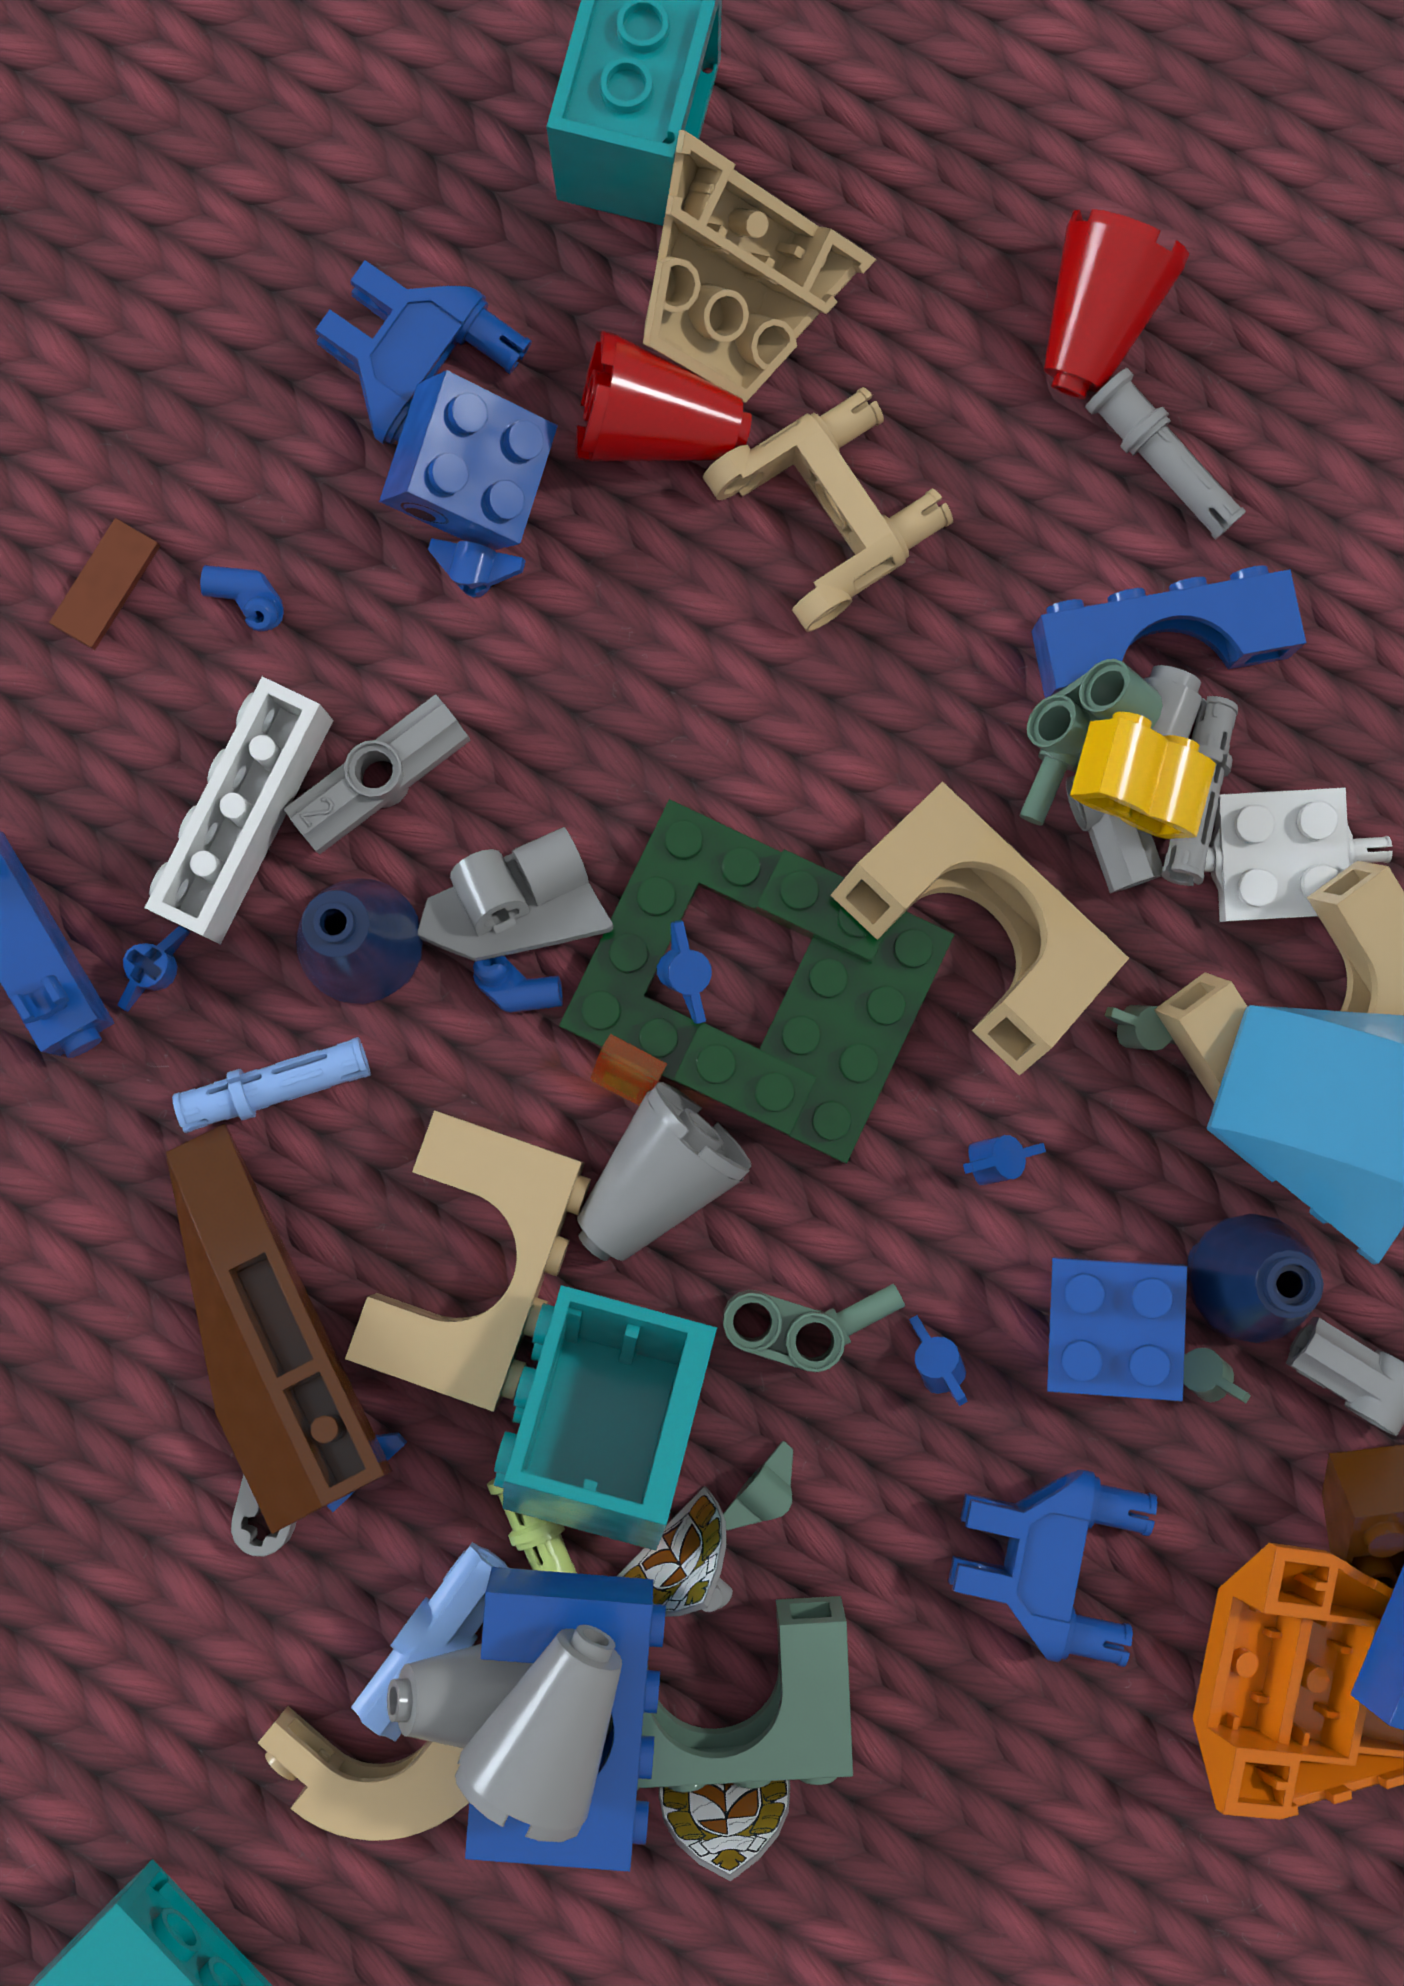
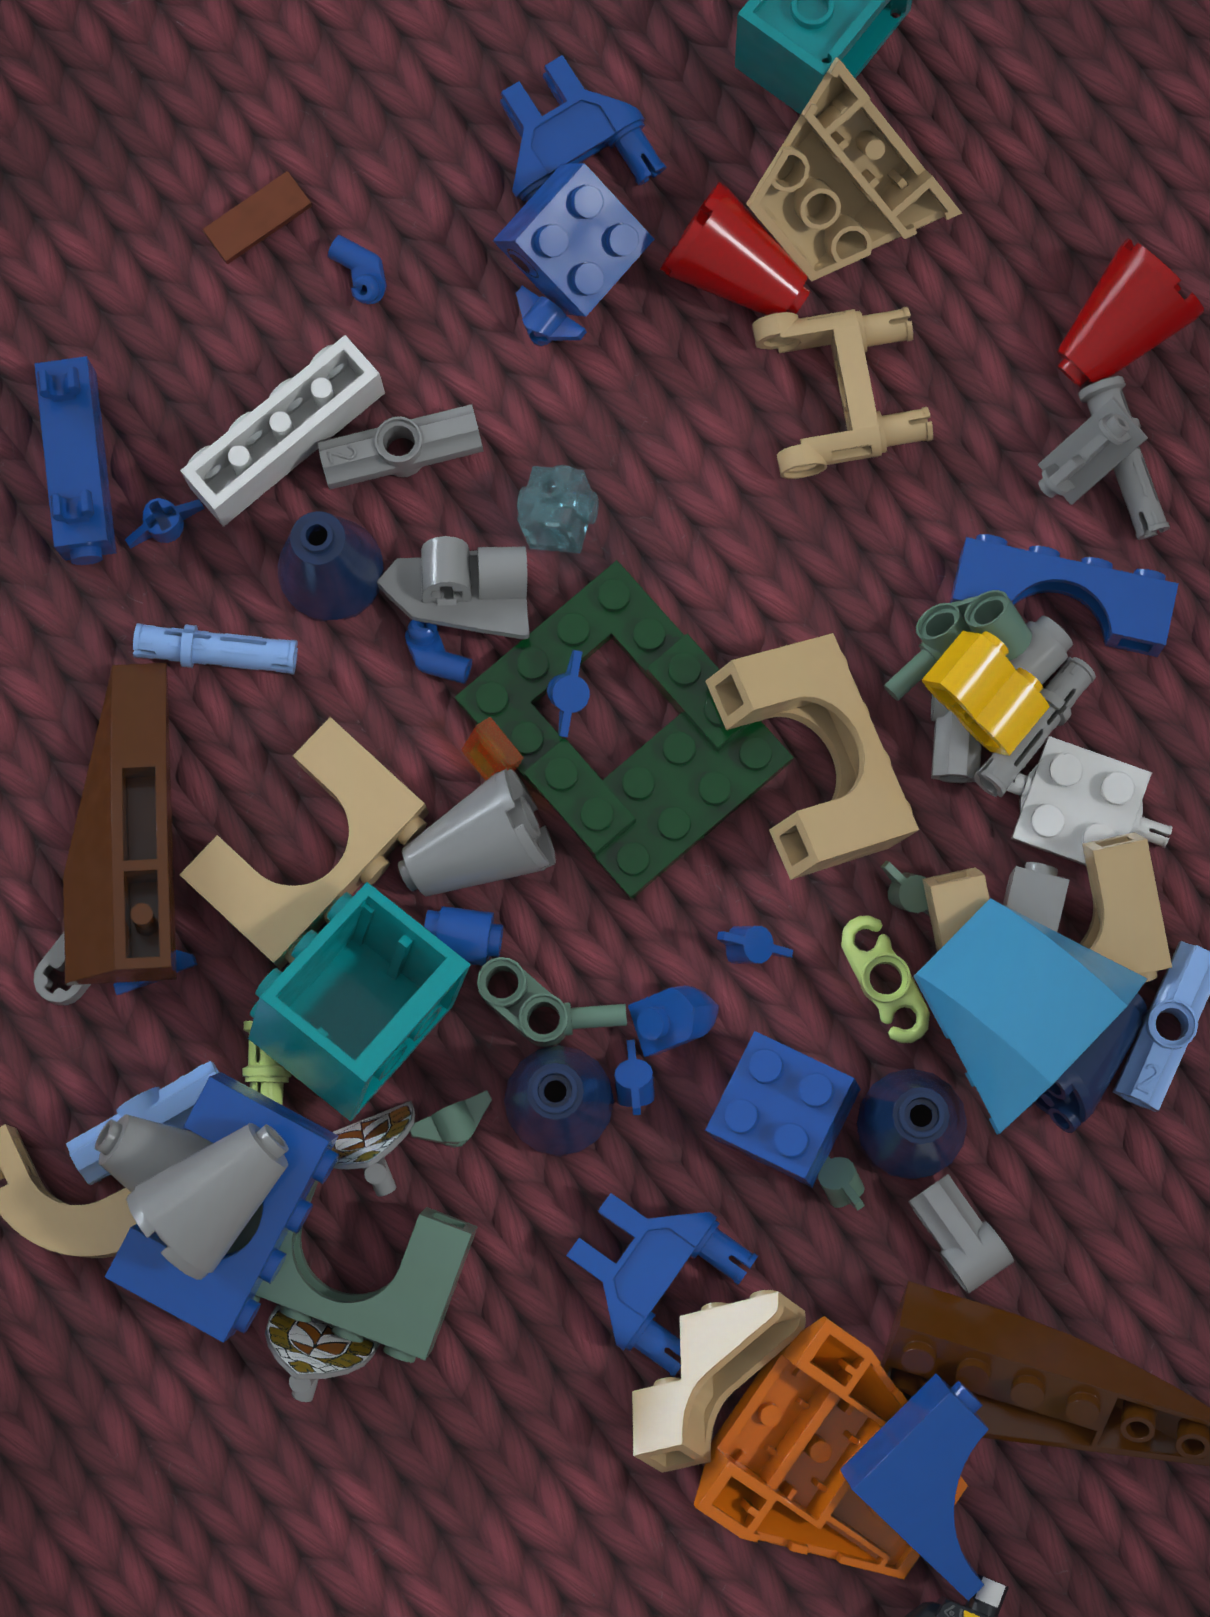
camera: 30 degrees right, 5 degrees down
(580, 770) = (556, 508): none -> clear light blue brick
(685, 1284) = (467, 932): none -> blue brick
(852, 1396) = (563, 1125): none -> dark blue cone
(950, 1277) = (672, 1018): none -> blue plate
(1131, 464) = (1090, 452): none -> light grey hinge
(1164, 1625) = (717, 1354): none -> tan arch
(1185, 1140) = (908, 993): none -> yellowish green piece
(1281, 975) = (1037, 893): none -> light grey brick

